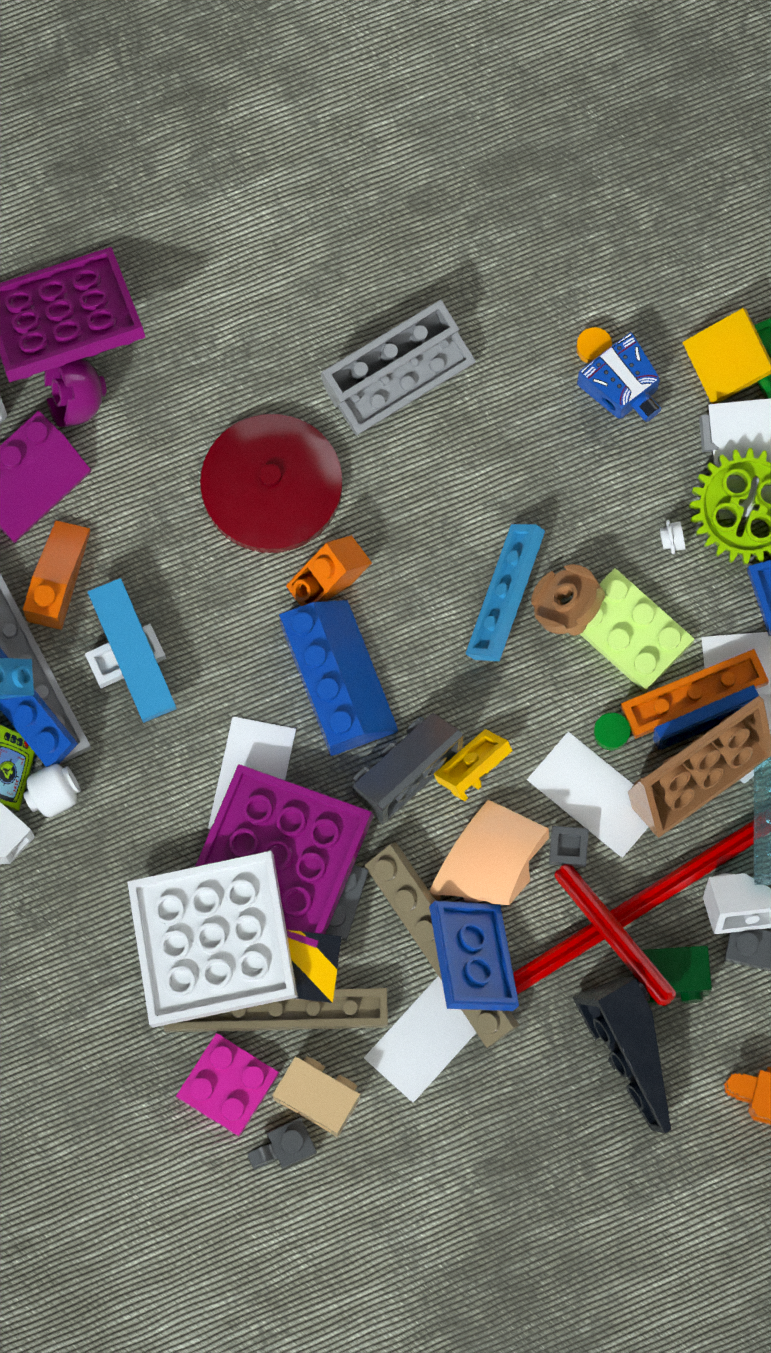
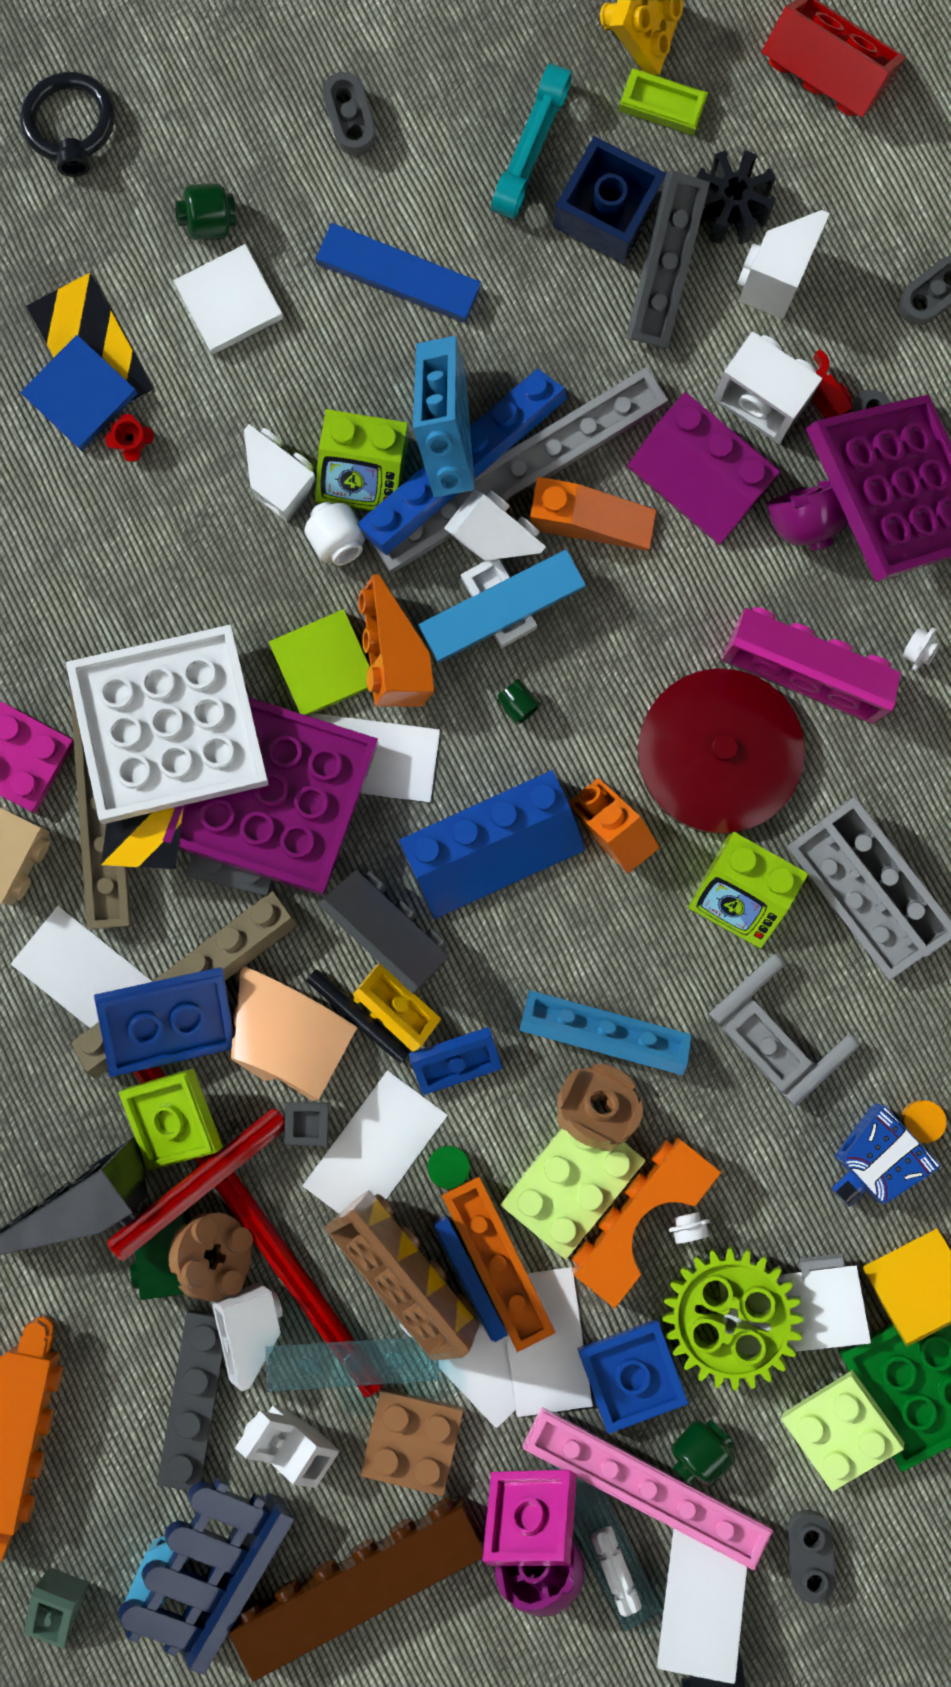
camera: 85 degrees right, 10 degrees up
(64, 655) = (489, 531): none -> white slope
(165, 743) = (398, 658): none -> orange slope
(166, 811) = (322, 663): none -> lime tile
(197, 313) = (921, 648): none -> white plate
(205, 401) = (812, 666): none -> dark pink slope
(215, 645) = (518, 702): none -> dark green hose
(391, 468) = (747, 890): none -> lime slope
(485, 793) = (358, 1016): none -> black bar
(522, 717) = (455, 1061): none -> blue plate
(523, 462) = (768, 1045): none -> light grey plate
(558, 959) = (170, 1119): none -> lime tile
(692, 920) = (232, 1261): none -> medium nougat plate
(696, 601) = (608, 1262): none -> orange arch

